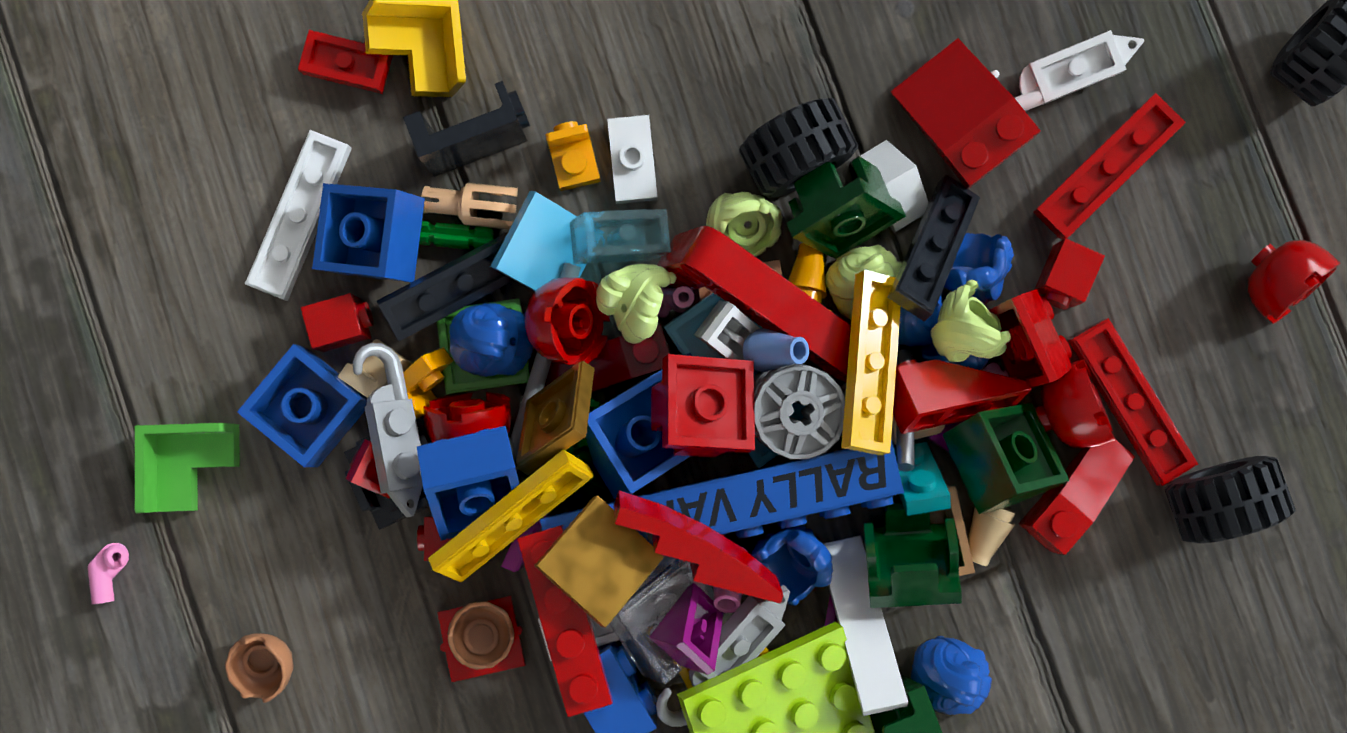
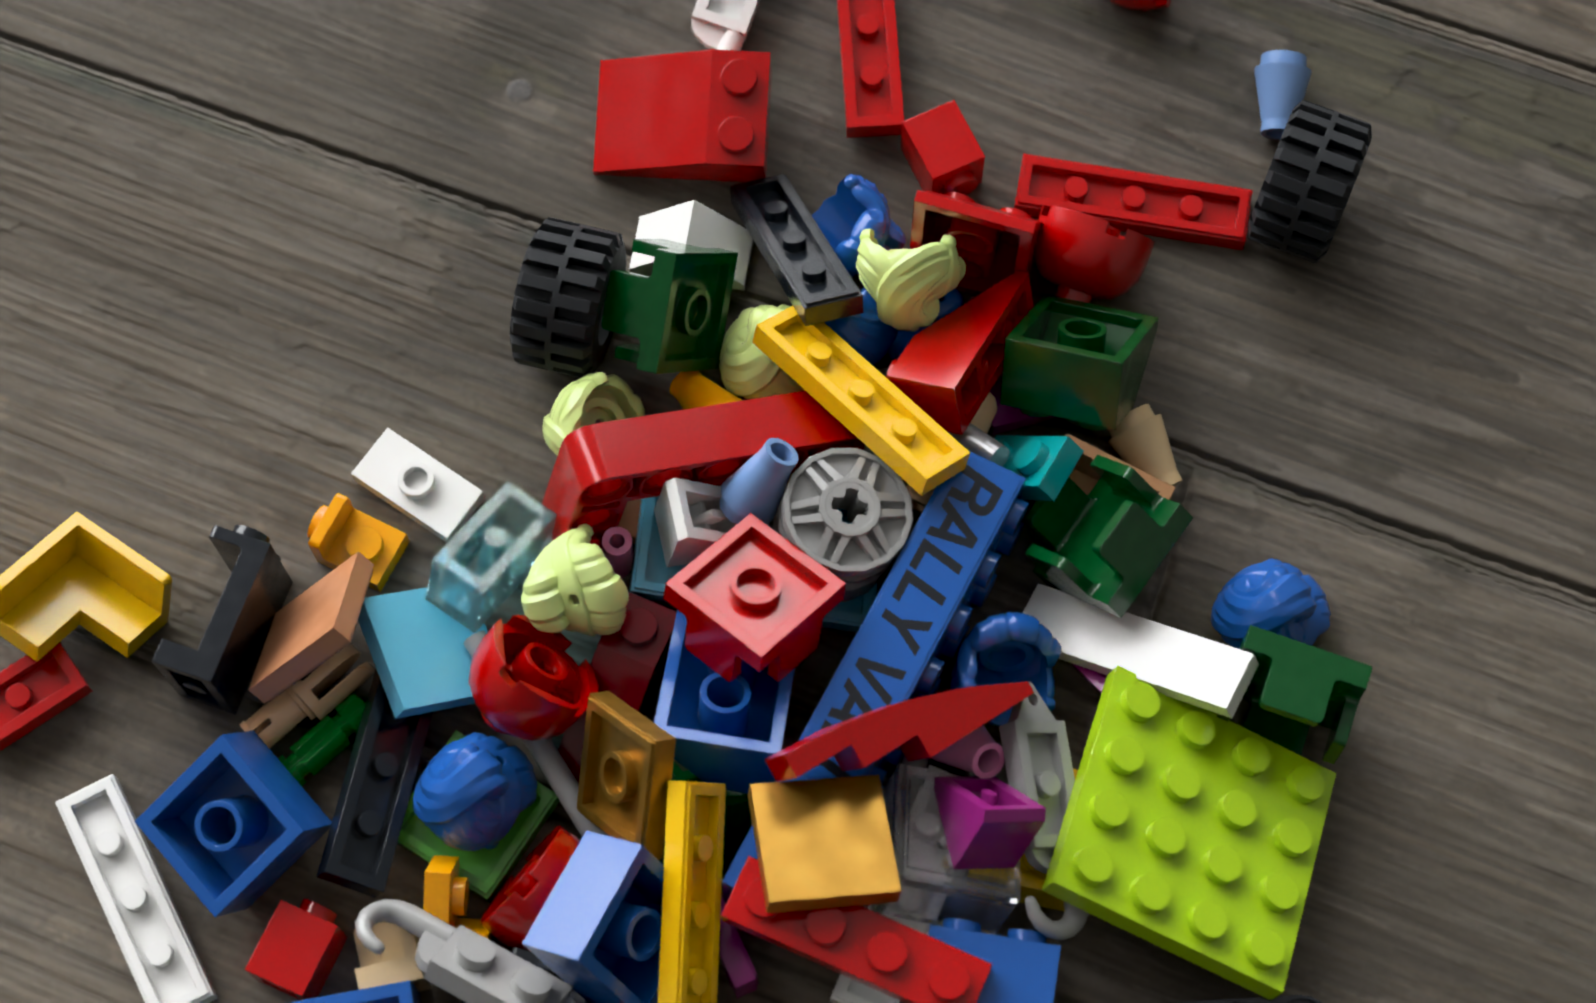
camera: 50 degrees left, 15 degrees down
(500, 180) = (312, 628): none -> nougat tile
(1071, 508) = (1189, 337): red slope -> none
(1275, 431) = (1280, 87): none -> medium blue cone

